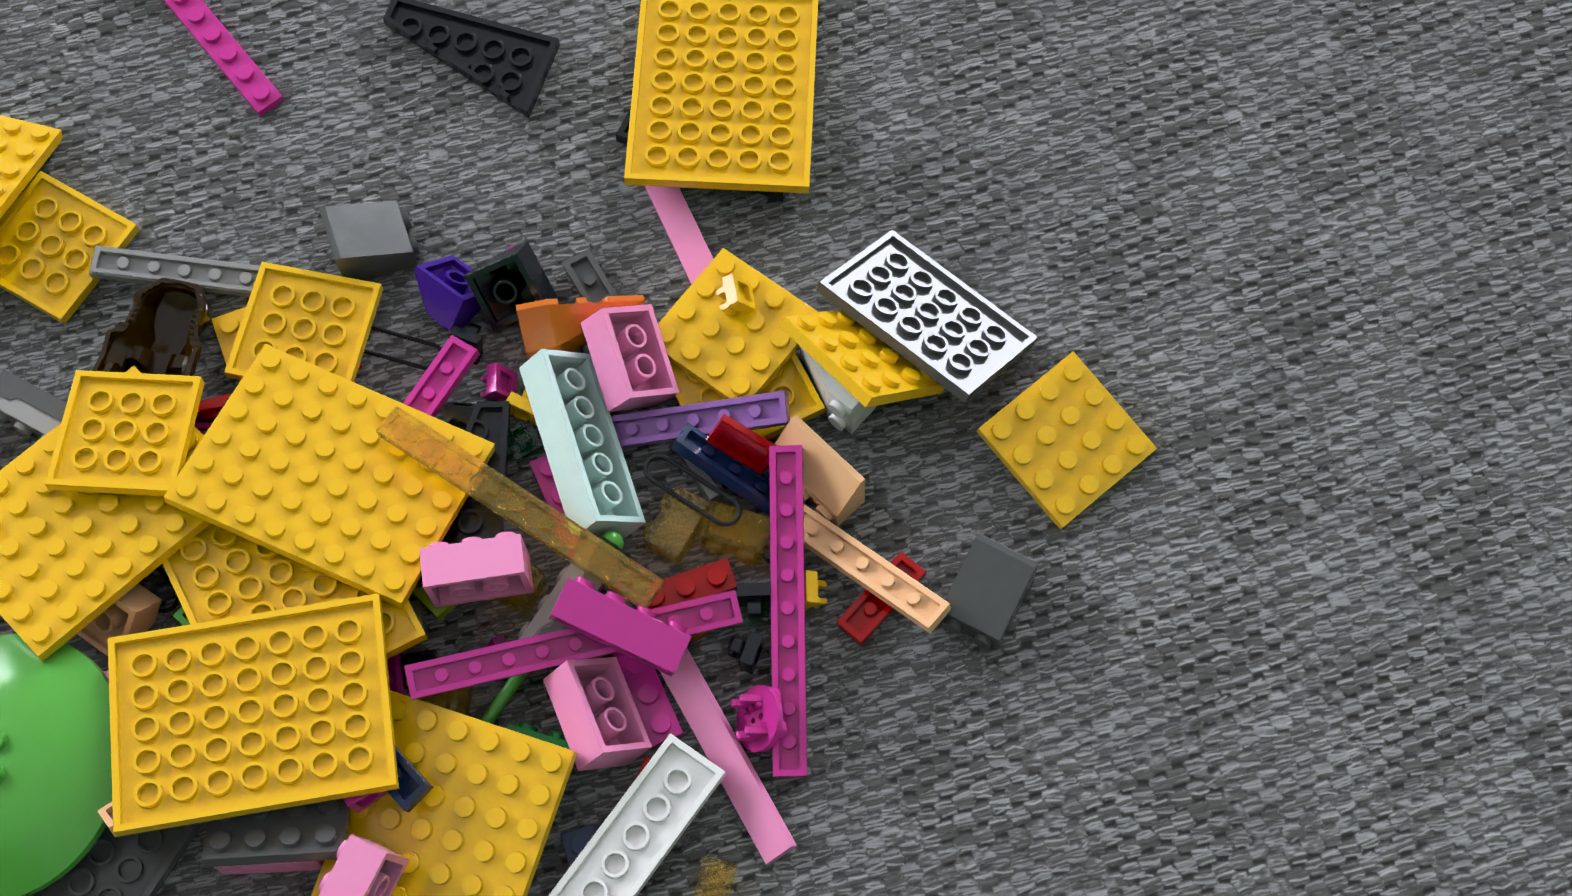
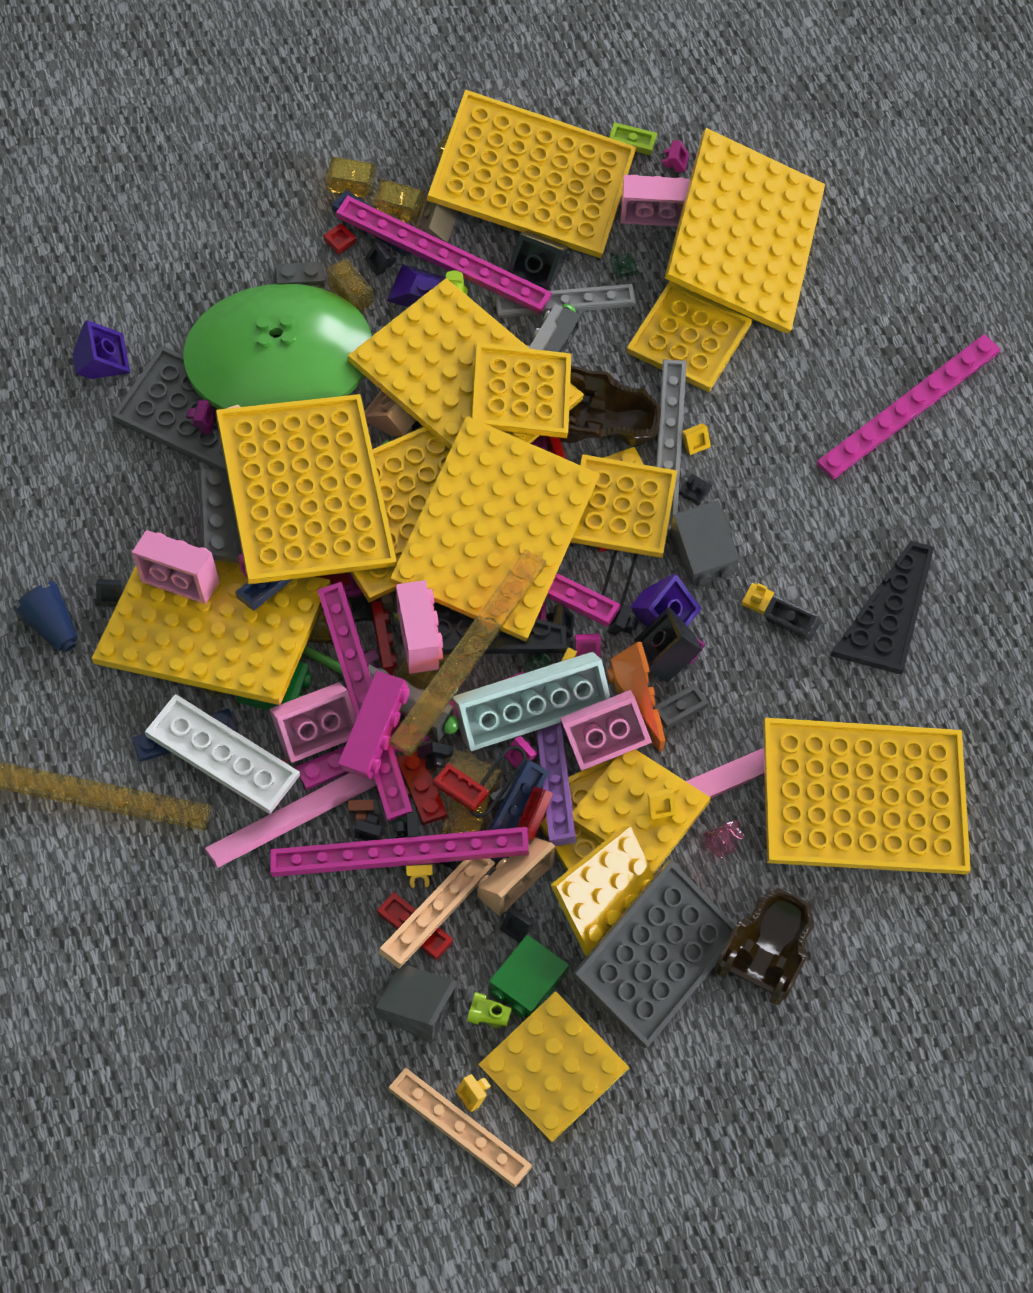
camera: 80 degrees right, 5 degrees down
(100, 872) = (202, 417): none -> magenta tile
(209, 244) = (696, 439): none -> yellow tile
(282, 251) = (695, 489): none -> black tile
(444, 190) = (757, 598): none -> yellow tile
(471, 631) = (384, 638): none -> red plate
(481, 148) = (792, 618): none -> black brick
(644, 559) = (435, 754): none -> black tile
(656, 469) = (515, 756): none -> dark pink tile
(703, 530) = (460, 787): none -> red plate
(718, 663) = (361, 808): none -> copper tile
(759, 718) = (313, 836): dark pink plate -> none
(768, 241) = (723, 838): none -> clear pink piece
(881, 476) = (517, 924): none -> black tile
(915, 193) = (770, 944): none -> dark brown animal
(952, 466) = (528, 977): none -> green brick
(994, 516) = (482, 1010): none -> lime plate
(1101, 533) = (472, 1092): none -> yellow tile
(1143, 551) = (460, 1127): none -> light nougat plate

